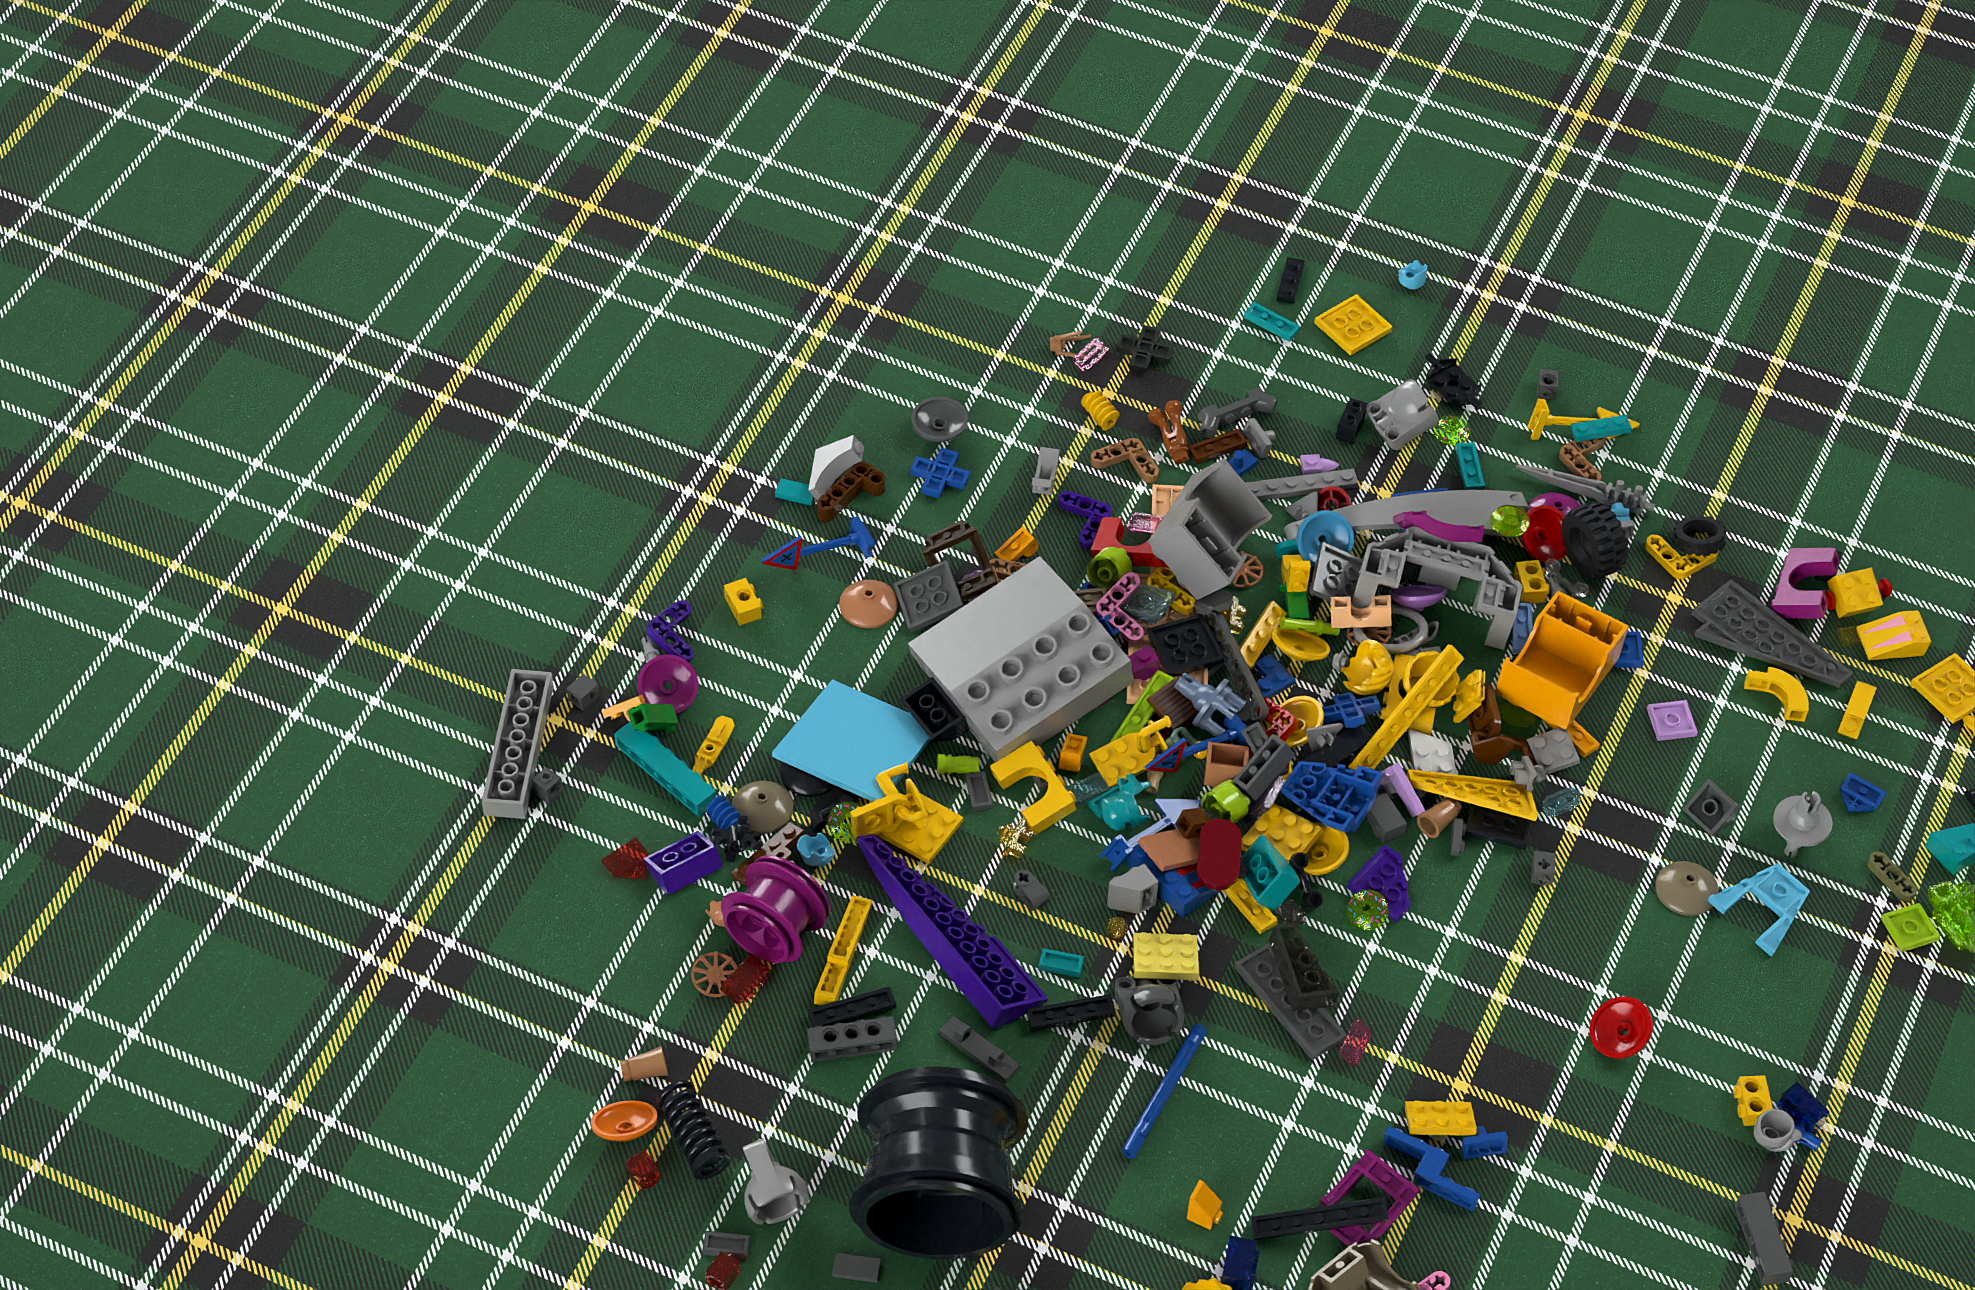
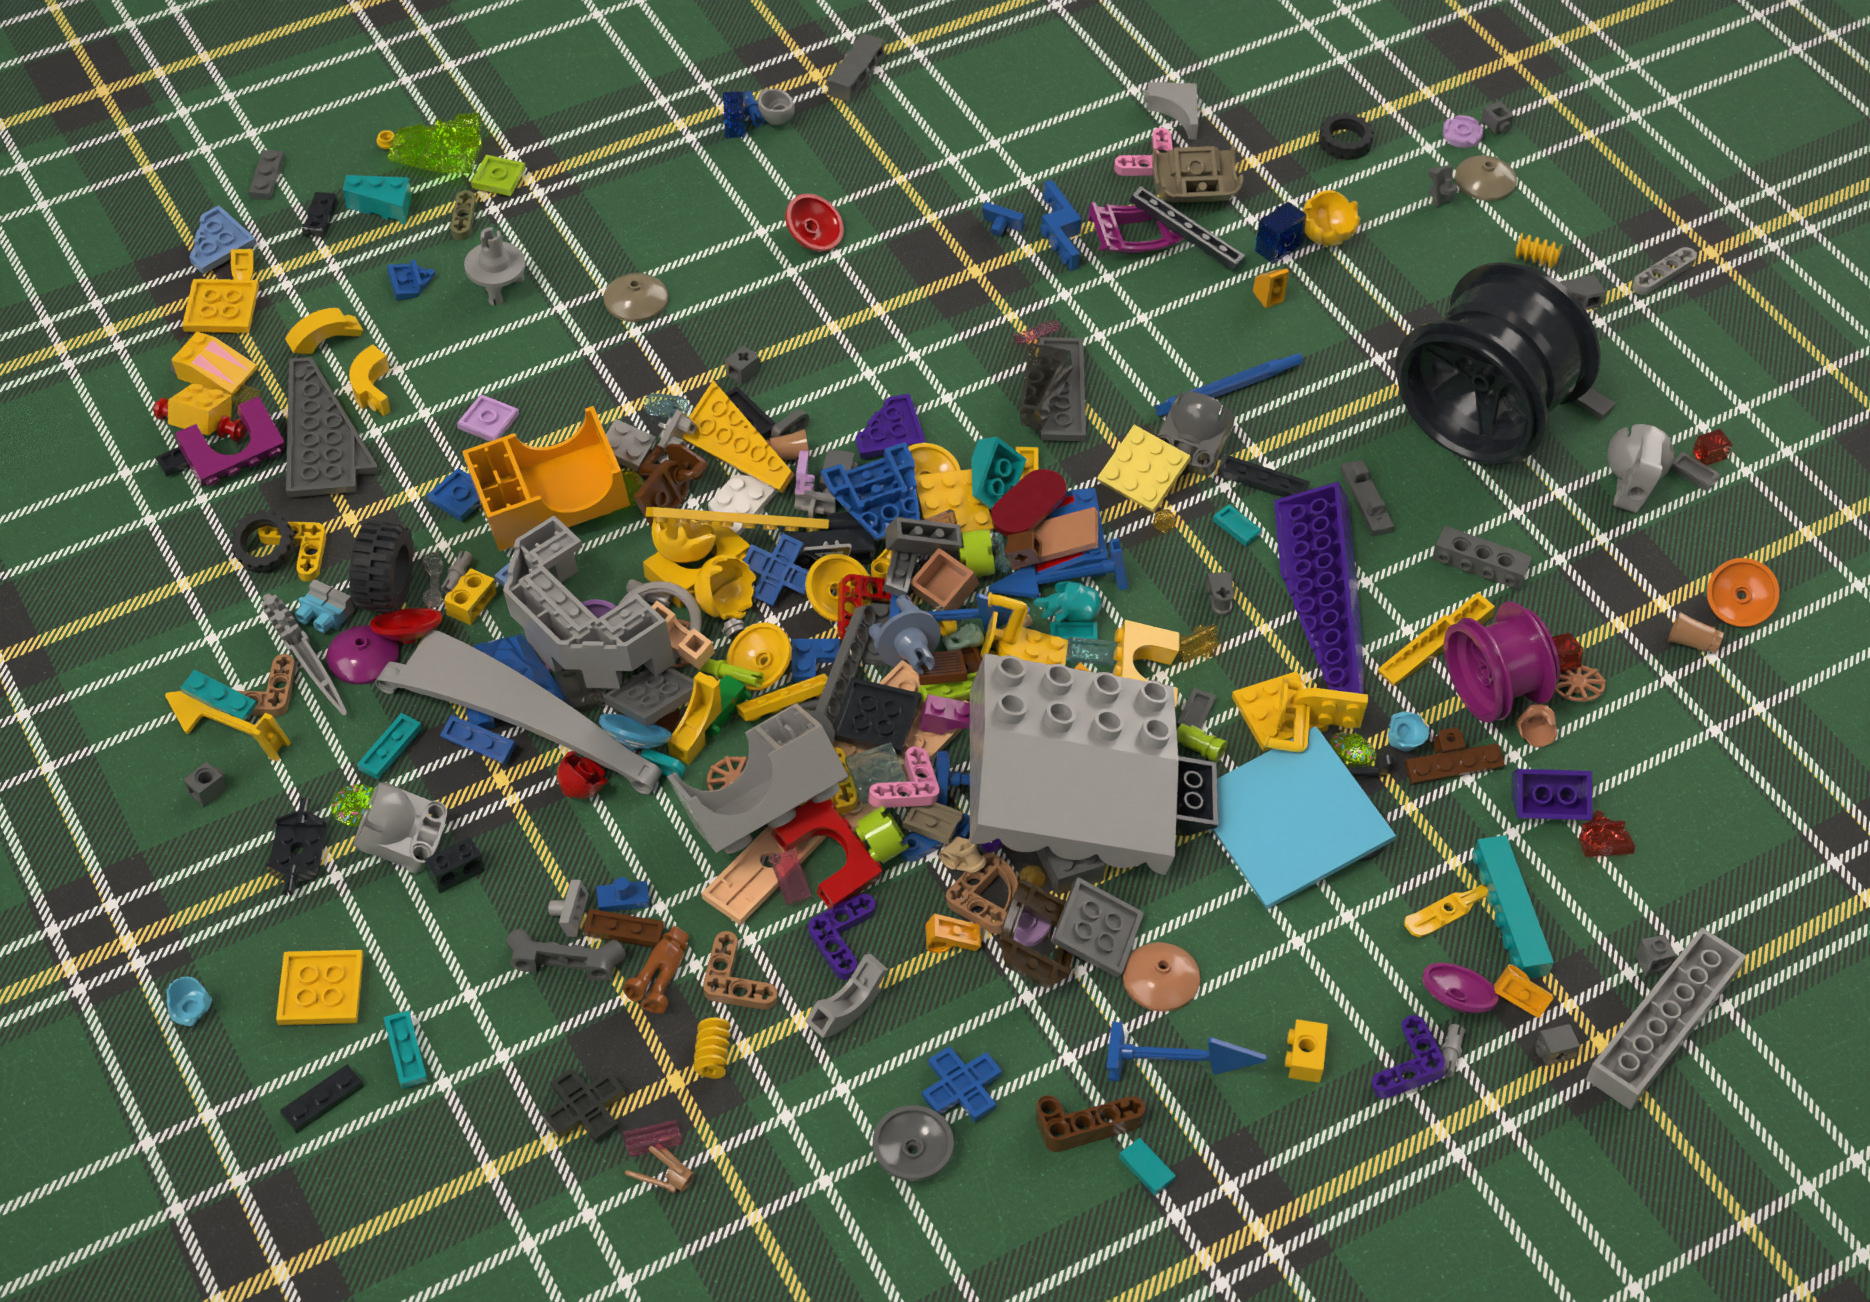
camera: 145 degrees left, 0 degrees up
(643, 1170) = (1742, 548): clear red brick -> none
(653, 717) = (1502, 947): green brick -> none
(682, 1130) = (1681, 554): black piece -> none
(723, 813) = (1477, 813): blue piece -> none
(736, 838) = (1487, 773): black pin -> none
(765, 814) = (1424, 828): dark tan dish -> none
(831, 462) = (1086, 1162): light grey arch -> none
(852, 1008) = (1463, 583): black plate -> none
(1133, 890) = (1132, 526): light grey slope -> none
(1302, 484) = (580, 835): light grey plate -> none
(1304, 507) = (611, 790): light grey piece -> none
(1310, 898) = (963, 456): black bar -> none
(1314, 464) = (540, 850): lavender plate -> none
(1367, 919) = (927, 416): clear neon green dish -> none
(1439, 529) = (502, 638): magenta wedge -> none
(1440, 1118) = (1021, 248): yellow plate -> none
(1469, 695) = (643, 525): yellow plate -> none
(1510, 515) = (439, 629): clear neon green dish -> none
(1711, 808) = (548, 330): dark grey slope -> none
(1757, 1099) = (762, 139): yellow brick -> none
(1776, 890) = (571, 248): medium azure wing -> none

